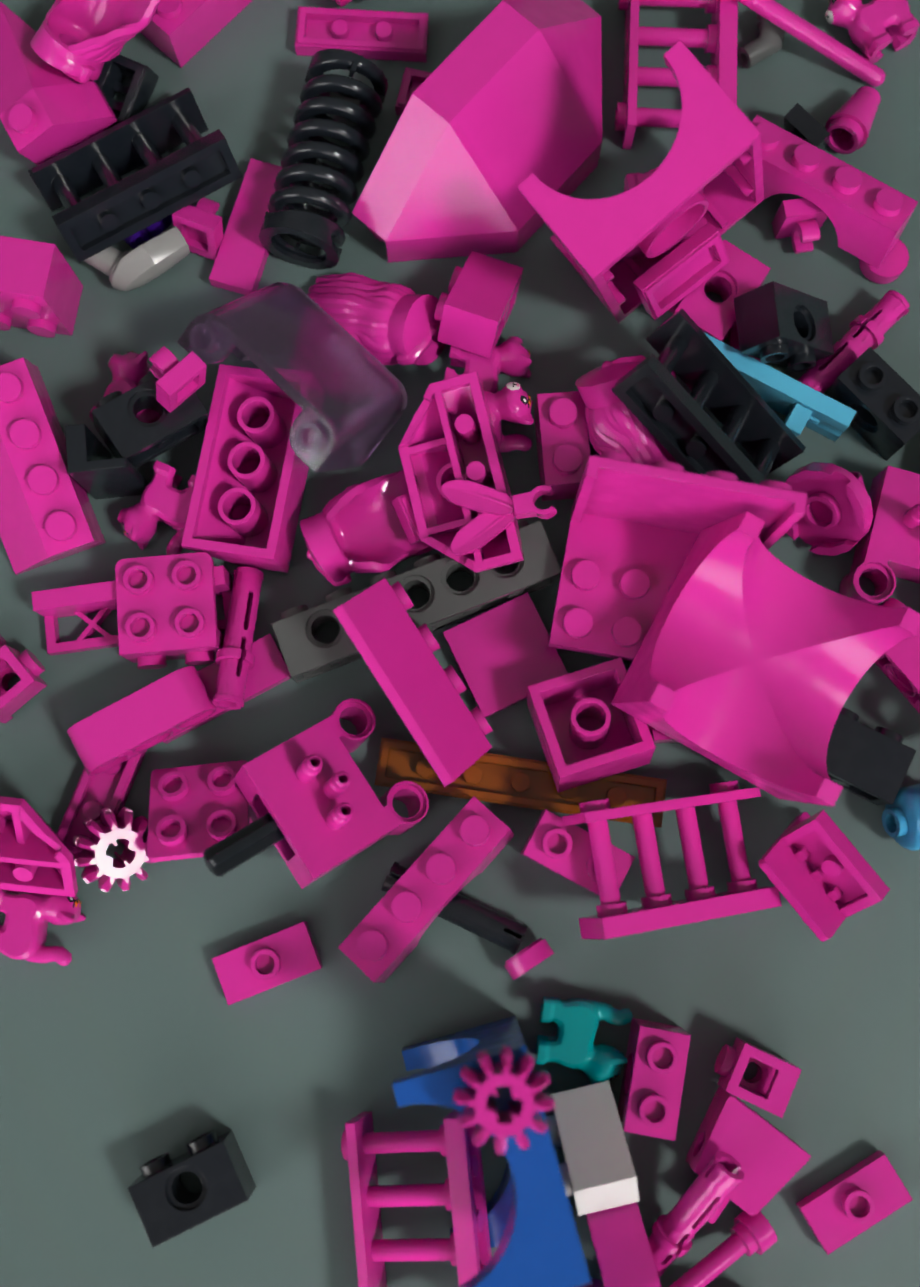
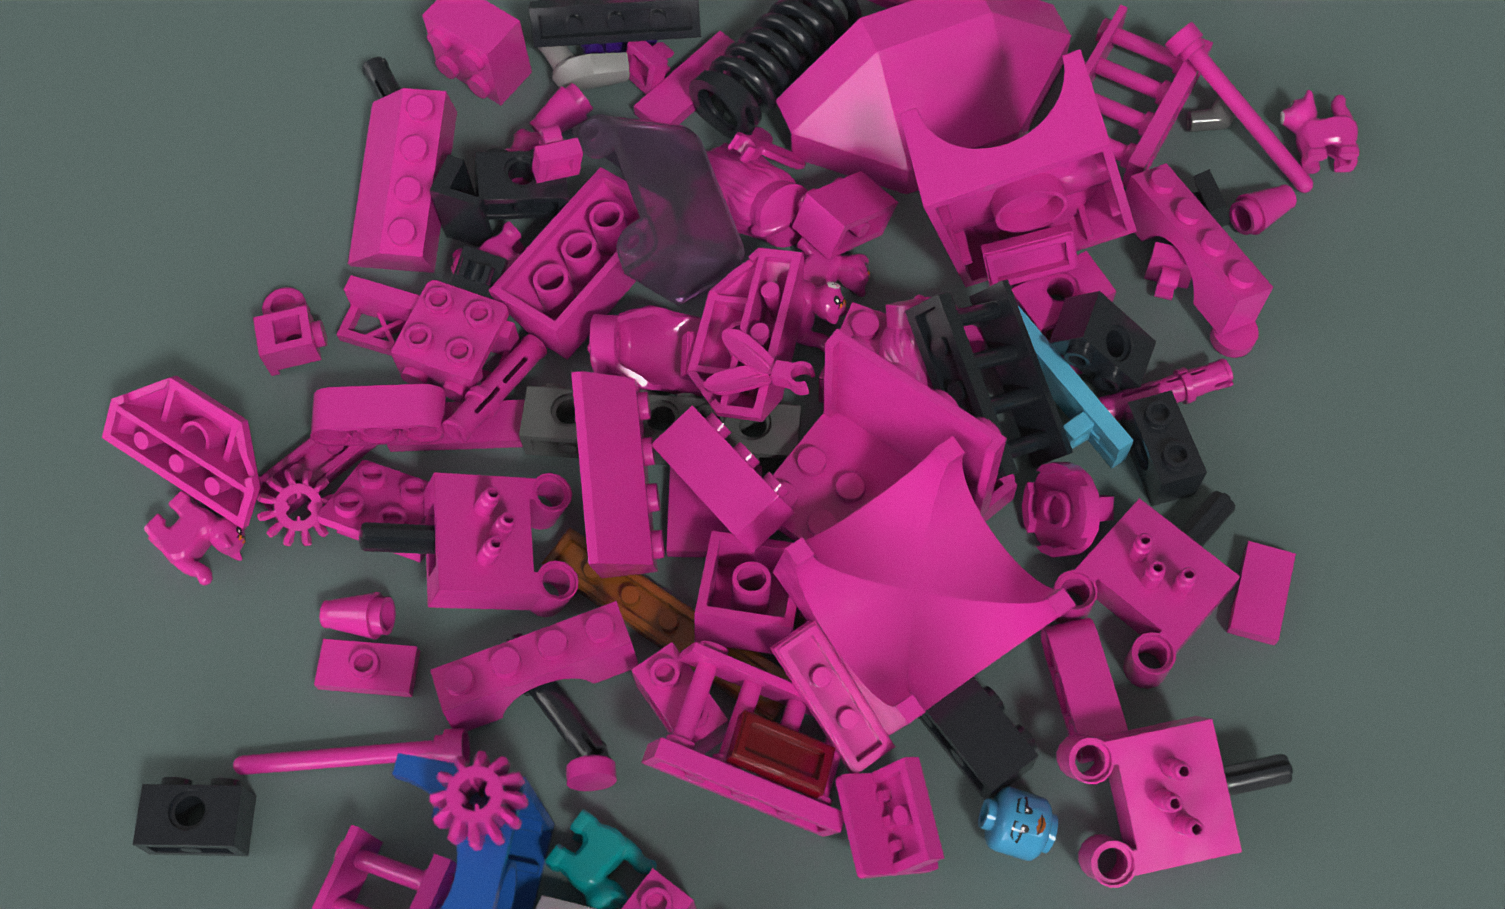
camera: 30 degrees right, 15 degrees down
(141, 318) = (565, 108): none -> dark pink cone
(159, 530) = (478, 271): none -> black tile
(232, 919) = (360, 615): none -> dark pink cone
(358, 269) = (760, 143): none -> dark pink piece
(385, 1002) = (443, 748): none -> dark pink piece
(517, 633) = (724, 477): none -> dark pink brick
(701, 868) = (780, 754): none -> dark red tile
(720, 792) = (832, 697): none -> dark pink tile

